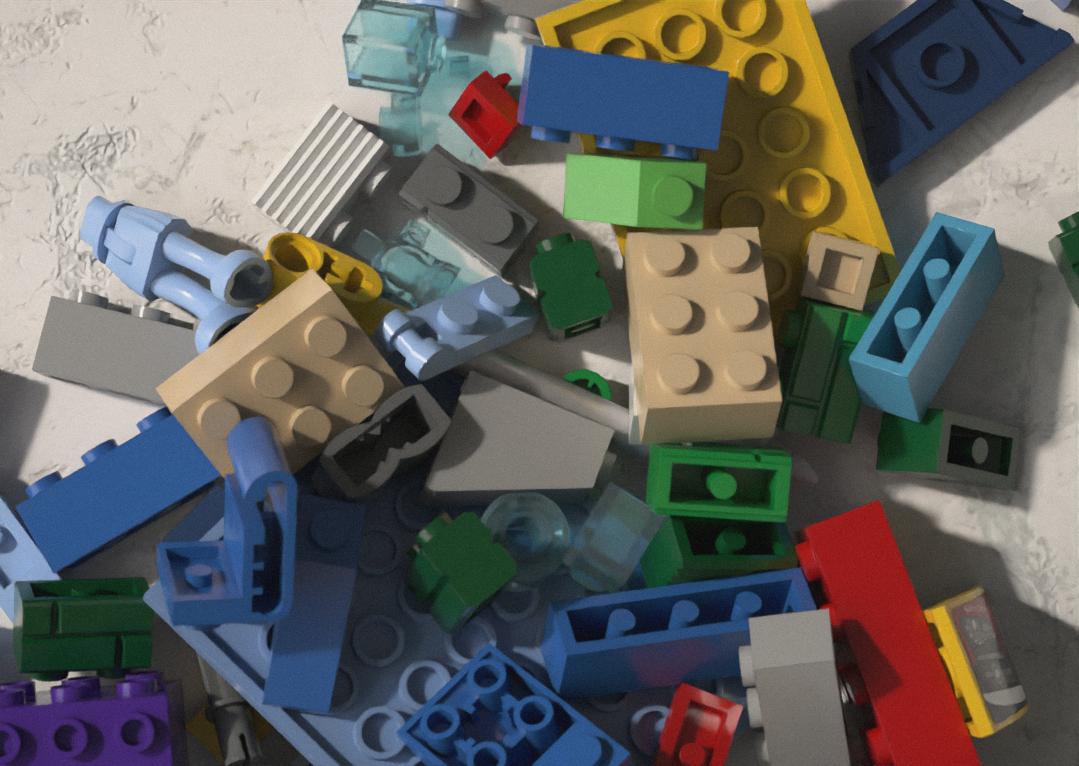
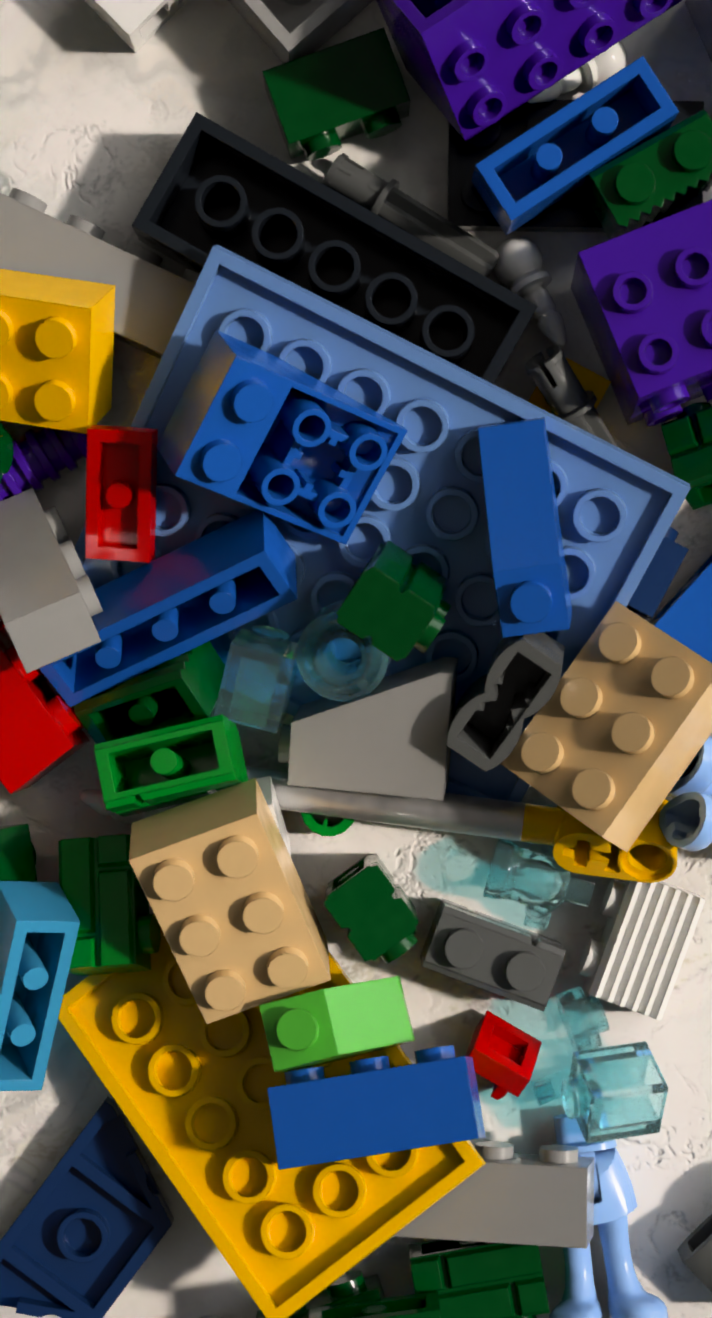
camera: 165 degrees right, 5 degrees up
(253, 568) = (595, 540): blue piece -> none
(457, 327) = (469, 838): light blue plate -> none
(837, 270) = (119, 1004): tan plate -> none

